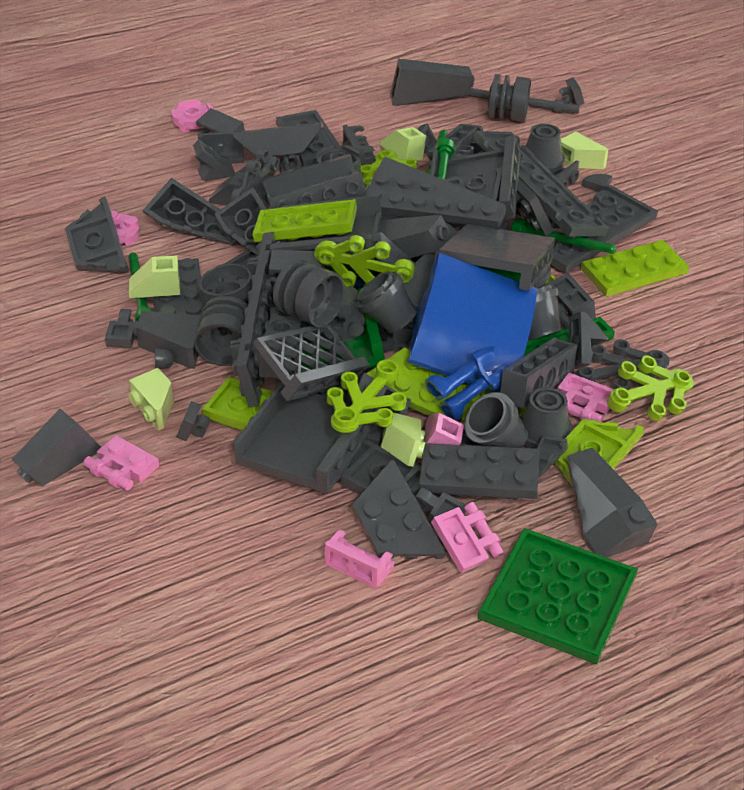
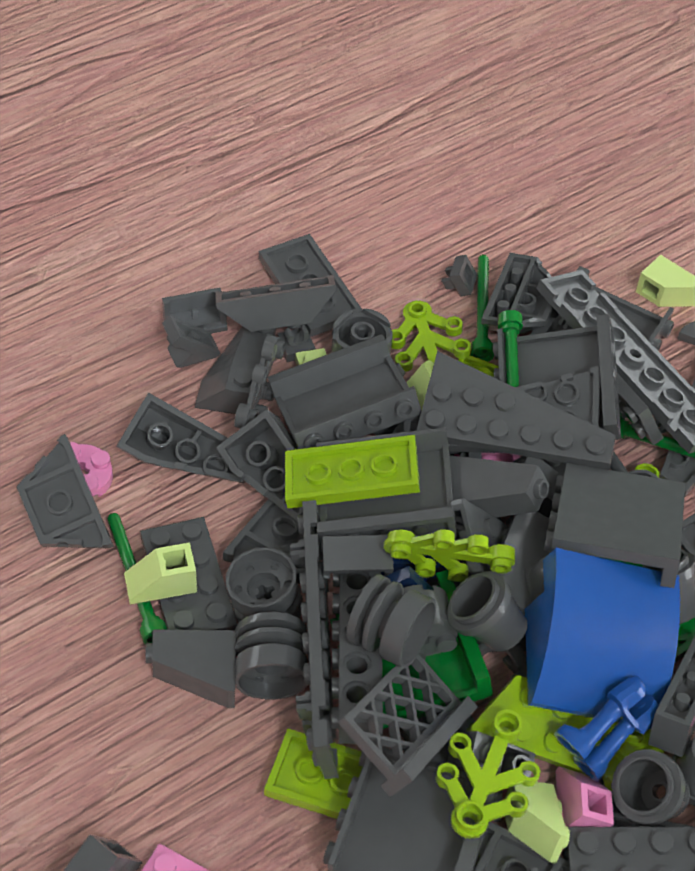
camera: 10 degrees left, 10 degrees up
(121, 331) = (128, 659): dark grey plate -> none
(153, 396) = (194, 770): yellowish green slope -> none
(163, 358) = (194, 701): dark grey hinge -> none
(188, 113) = (147, 264): bright pink plate -> none
(193, 423) = (255, 812): dark grey tile -> none
(218, 122) = (187, 271): dark grey hinge -> none
(359, 143) = (375, 292): dark grey hinge -> none
(406, 143) = (442, 289): yellowish green slope -> none
(429, 81) = (452, 175): dark grey slope -> none
(509, 97) = (565, 199): dark grey wheel -> none
(546, 146) = (631, 291): dark grey piece -> none
(557, 105) = (624, 200): dark grey bar -> none
(573, 91) = (639, 177): dark grey tile -> none

